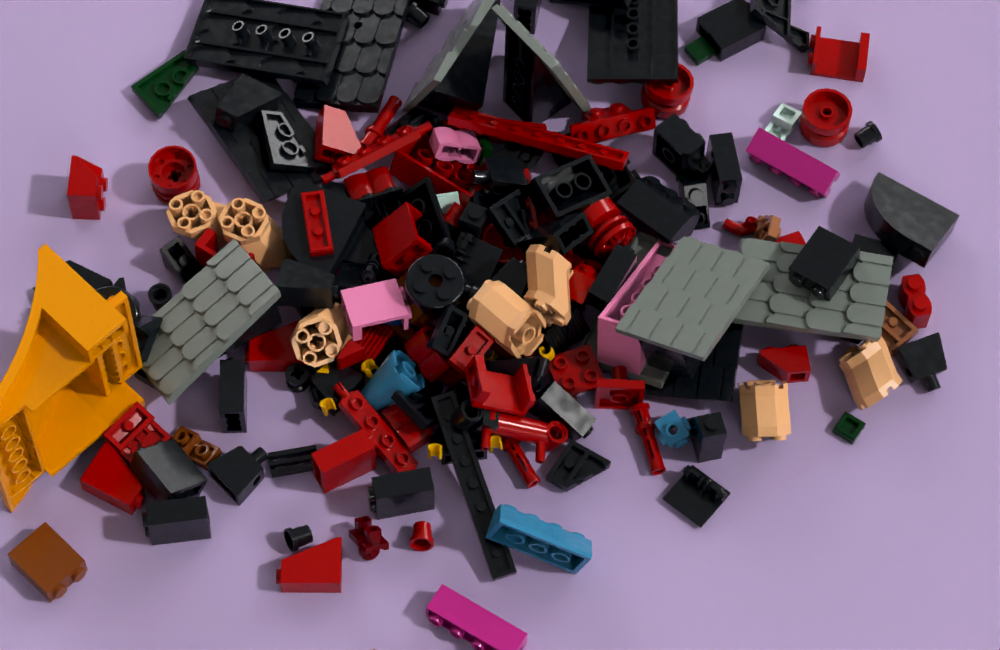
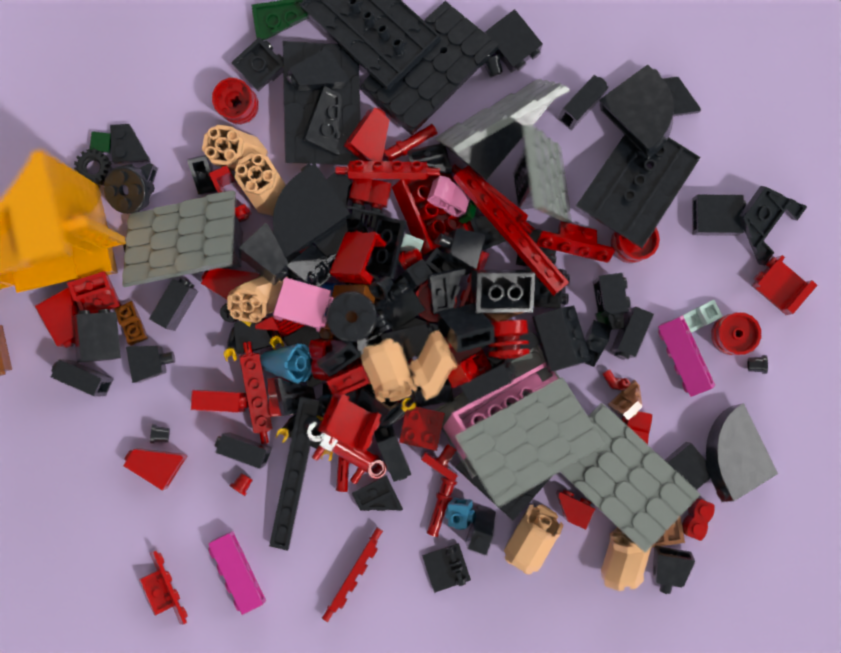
camera: 30 degrees right, 25 degrees up
(86, 189) = (168, 74): red slope -> none
(146, 332) = (137, 220): black slope -> none
(159, 291) = (166, 190): black piece -> none
(175, 129) = (259, 64): none -> black plate
(291, 461) = (176, 368): black tile -> none
(317, 223) = (304, 209): red tile -> none
(367, 538) = (202, 467): dark red hips -> none
(539, 539) = (314, 543): dark azure slope -> none
(605, 566) = (350, 583): none -> red plate
(699, 50) = (682, 218): dark green tile -> none
(824, 263) = (644, 471): black brick -> none
(848, 427) = (585, 581): dark green tile -> none

